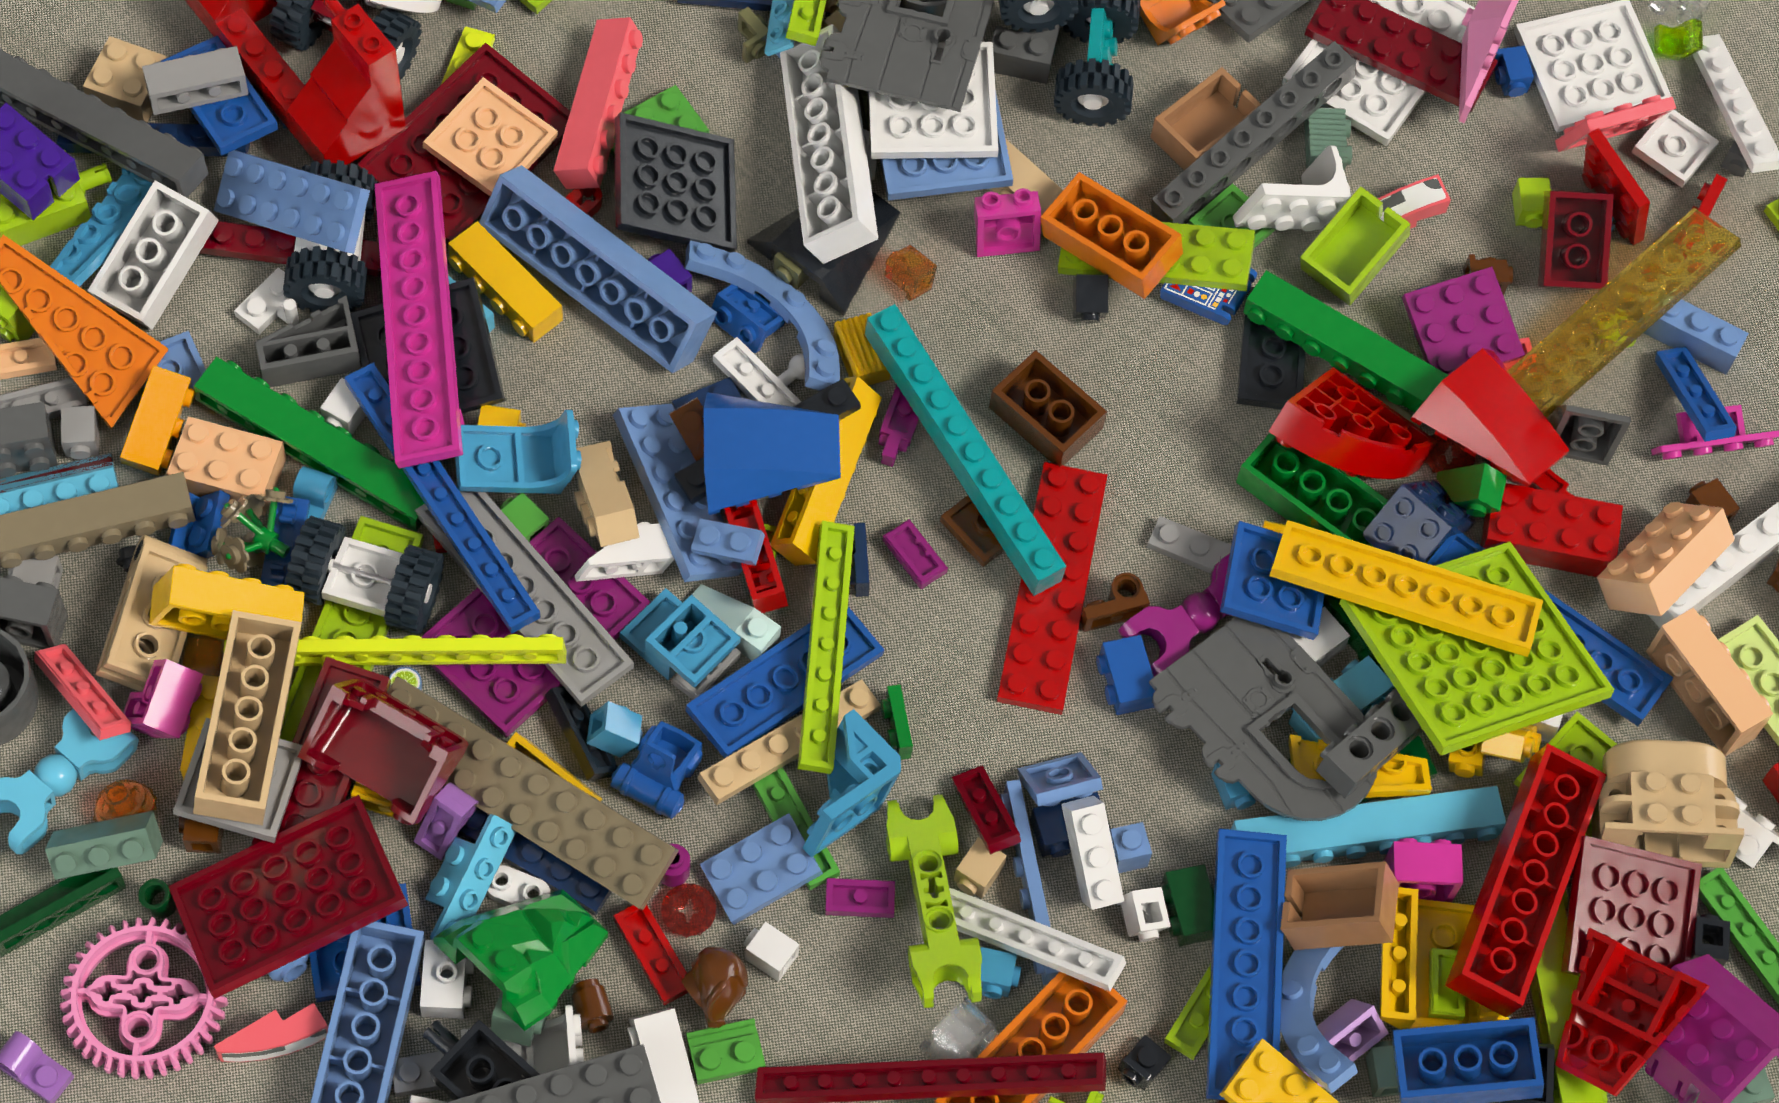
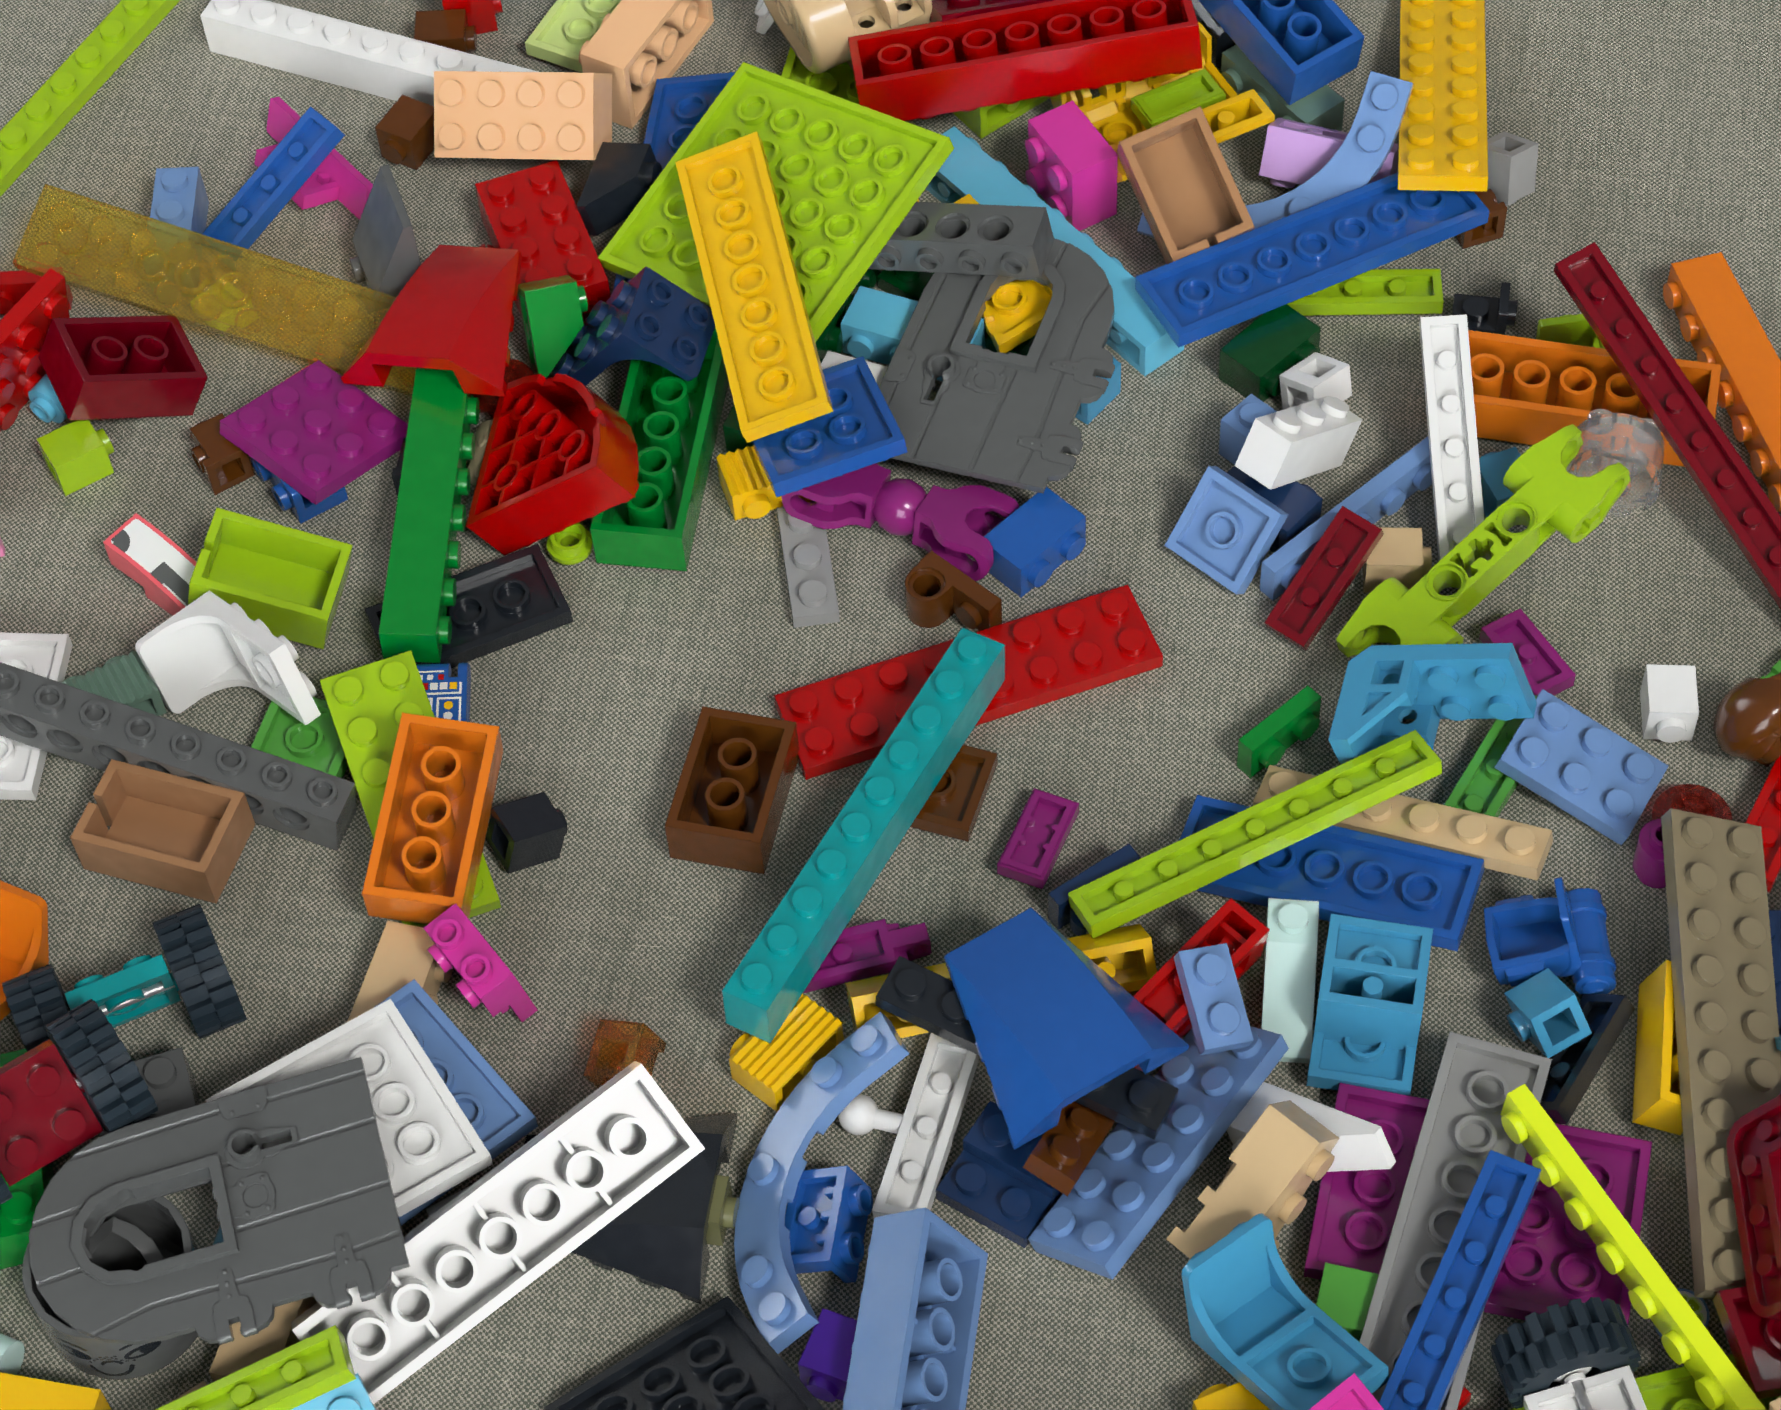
camera: 110 degrees left, 10 degrees down
(1575, 590) = (616, 184): none -> black slope

